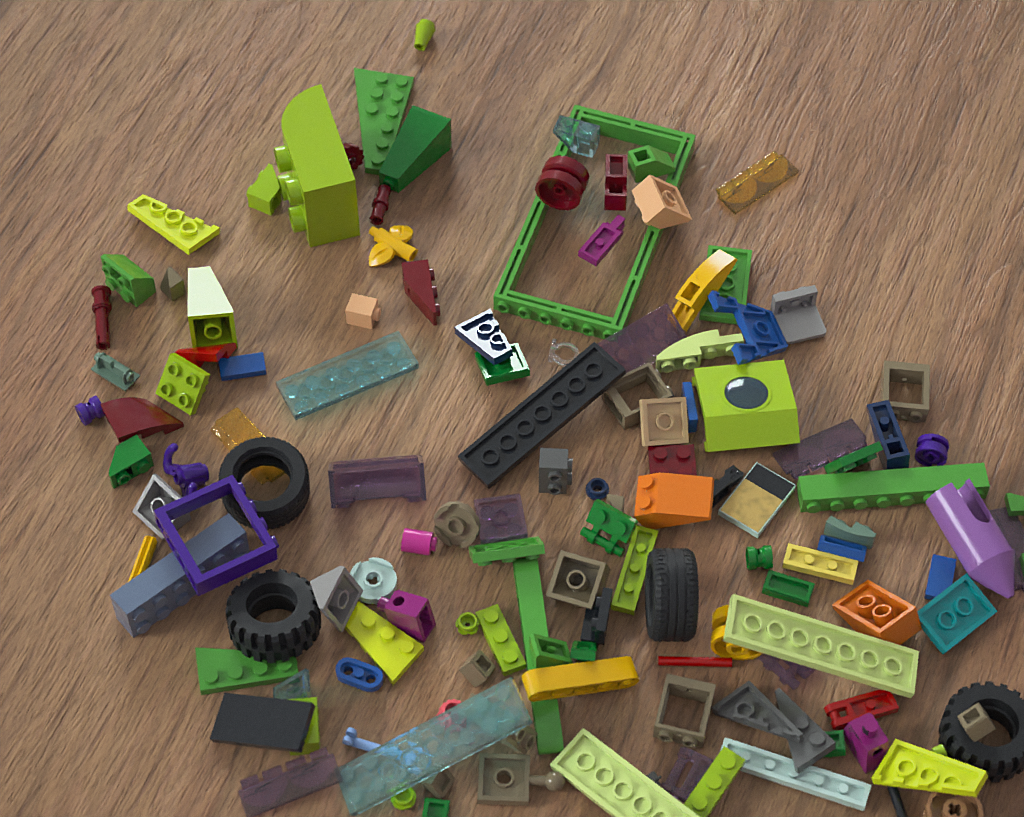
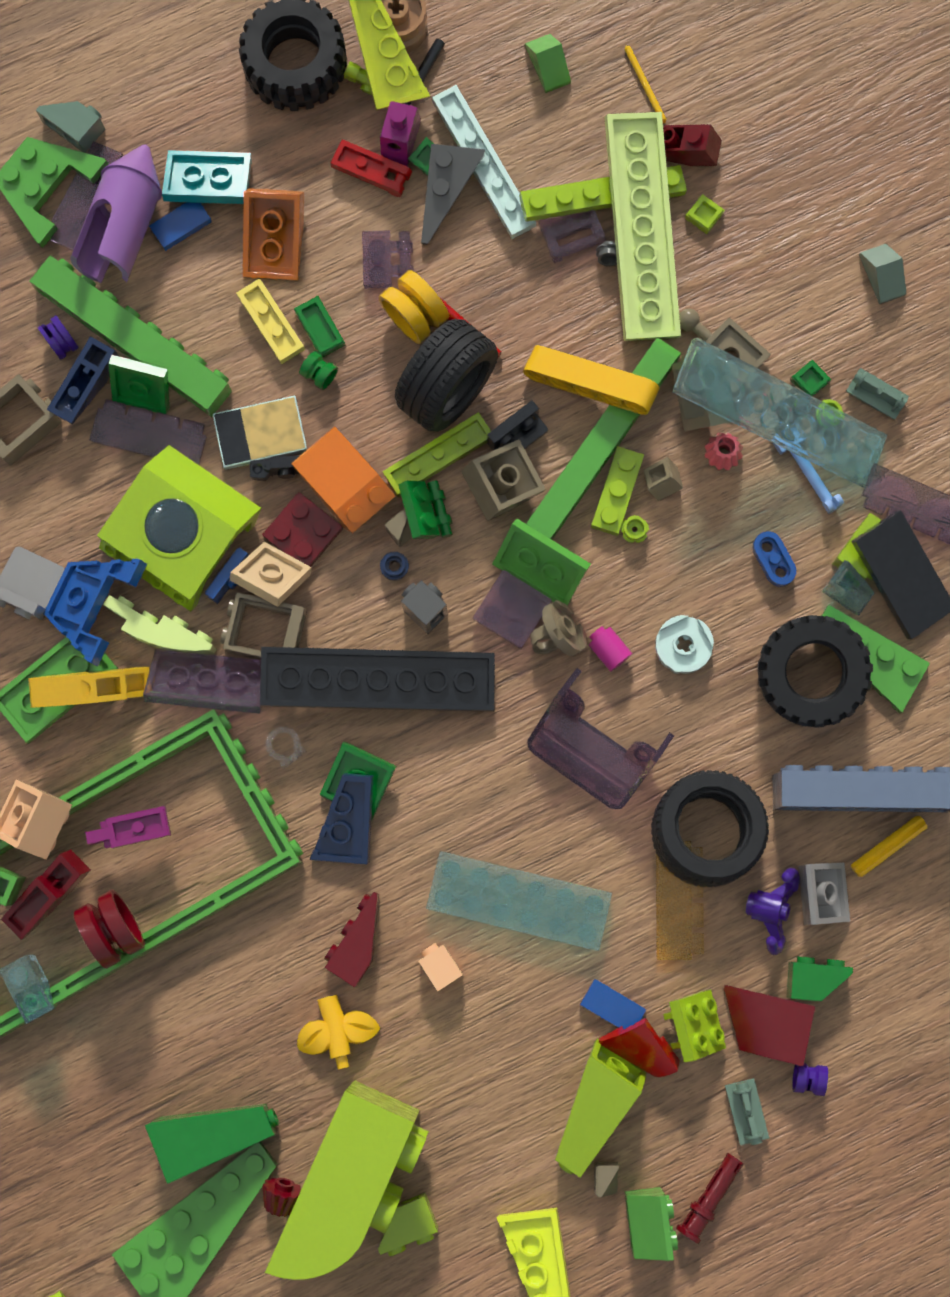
camera: 135 degrees left, 25 degrees up
(233, 569) = (867, 791): dark purple window -> none
(336, 595) = (750, 634): light grey slope -> none
(380, 204) = (303, 1097): dark red pin -> none
(385, 644) = (724, 579): neon yellow wing -> none
(409, 614) = (686, 565): magenta torso -> none
(548, 651) = (600, 420): bright green slope -> none
(583, 651) = (562, 405): green plate -> none
(687, 689) = (499, 301): dark tan window -> none
(753, 709) = (464, 242): dark grey wing -> none
(821, 646) = (364, 223): yellowish green plate -> none
(842, 548) = (236, 318): blue tile -> none
(857, 534) = (210, 318): sand green slope -> none
(976, 722) = (307, 47): dark tan slope -> none

